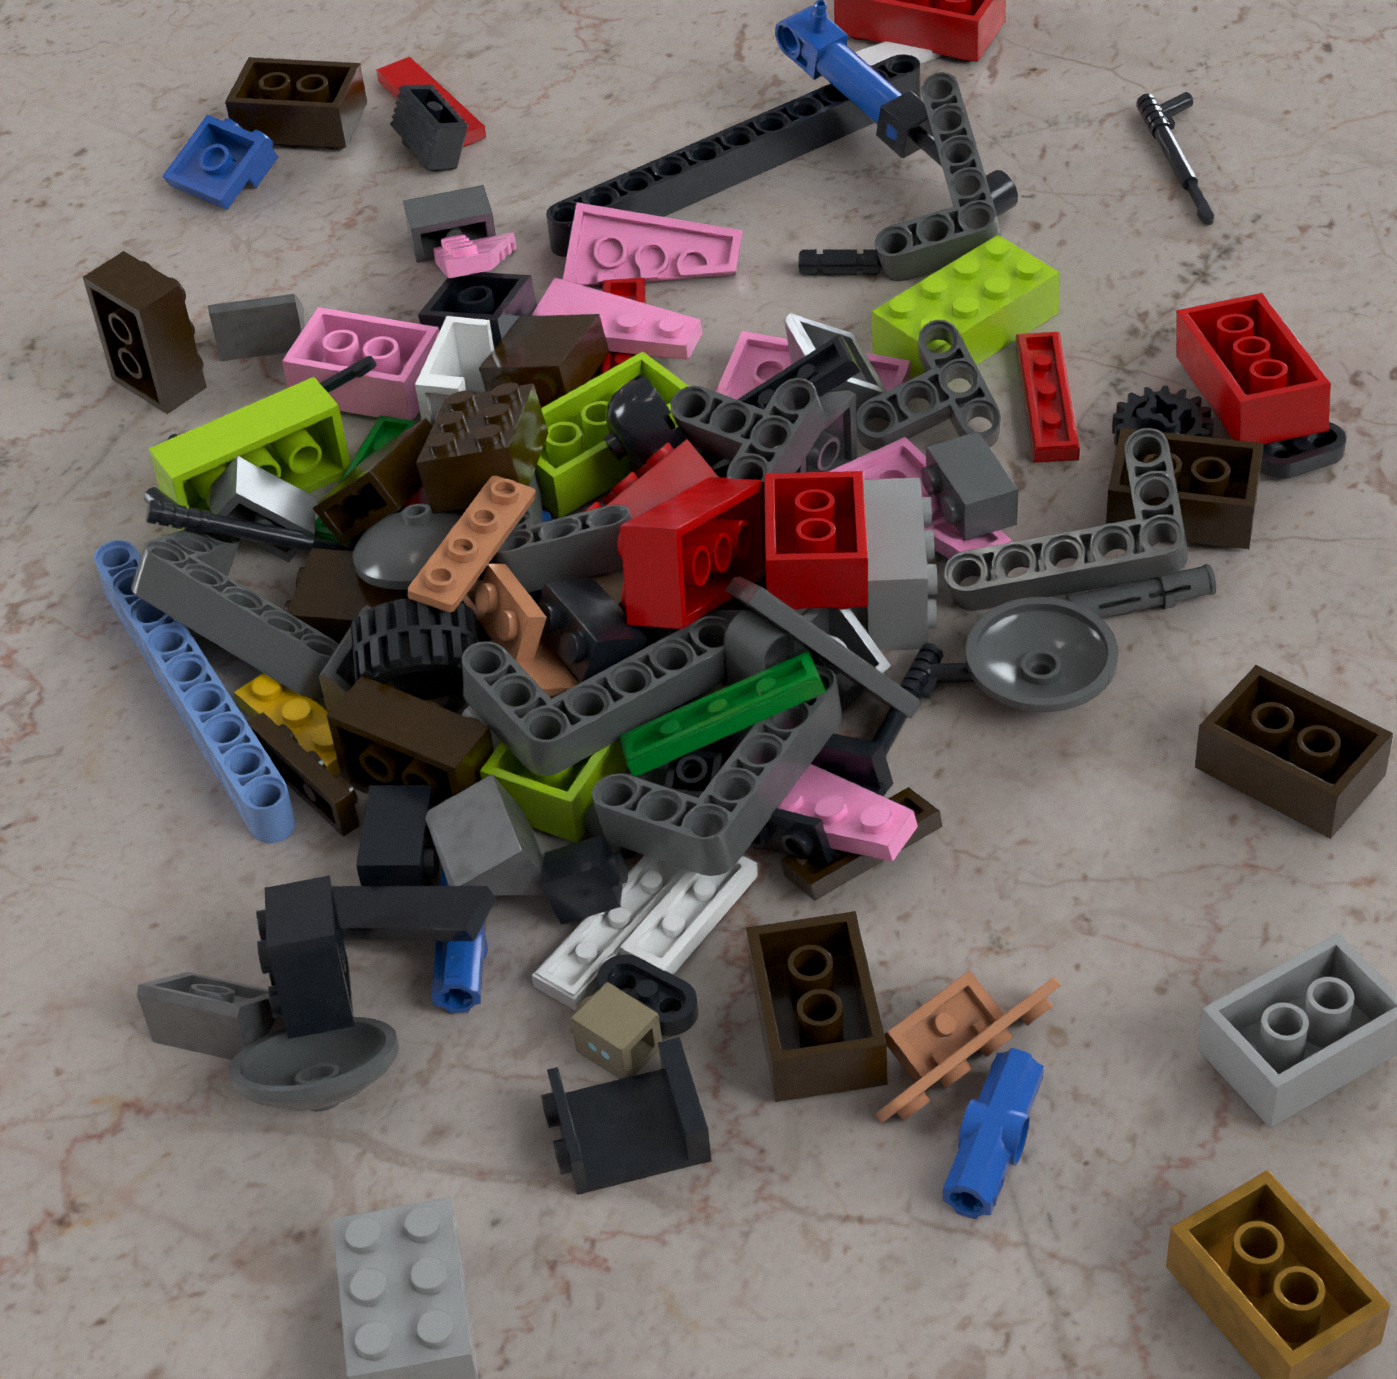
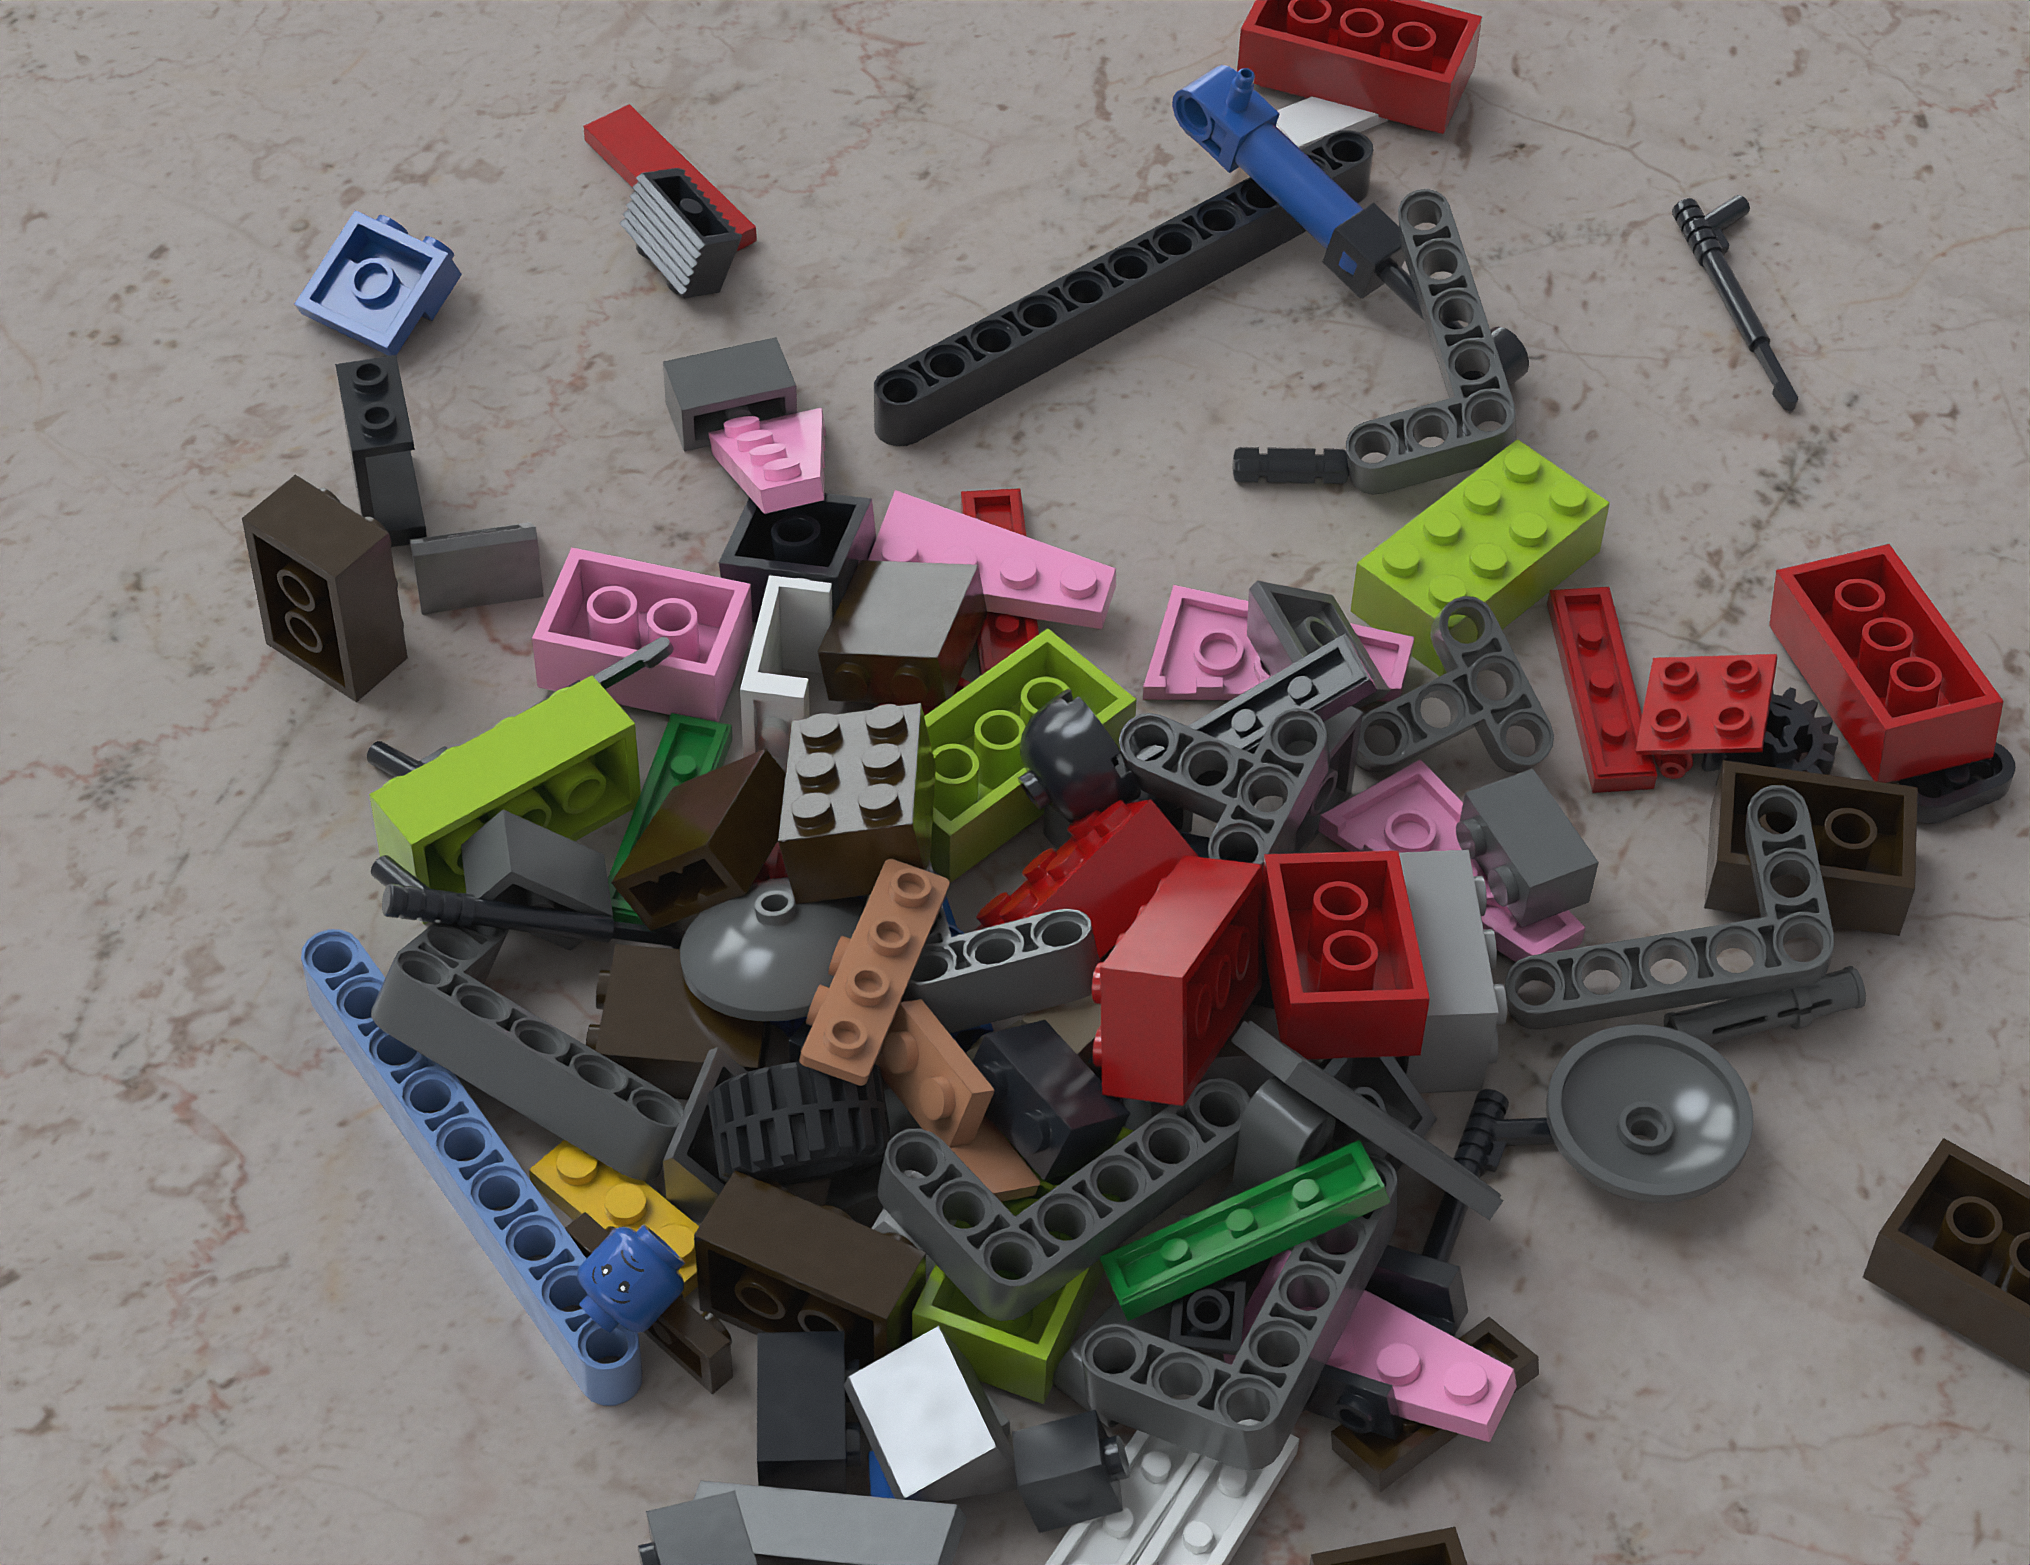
camera: 10 degrees left, 5 degrees up
(191, 225) = (381, 446): none -> black panel
(281, 747) = (630, 1279): none -> blue head
(299, 101) = (481, 184): dark brown brick -> none
(638, 245) = (1009, 441): bright pink wing -> none
(1115, 401) = (1705, 708): none -> red hinge

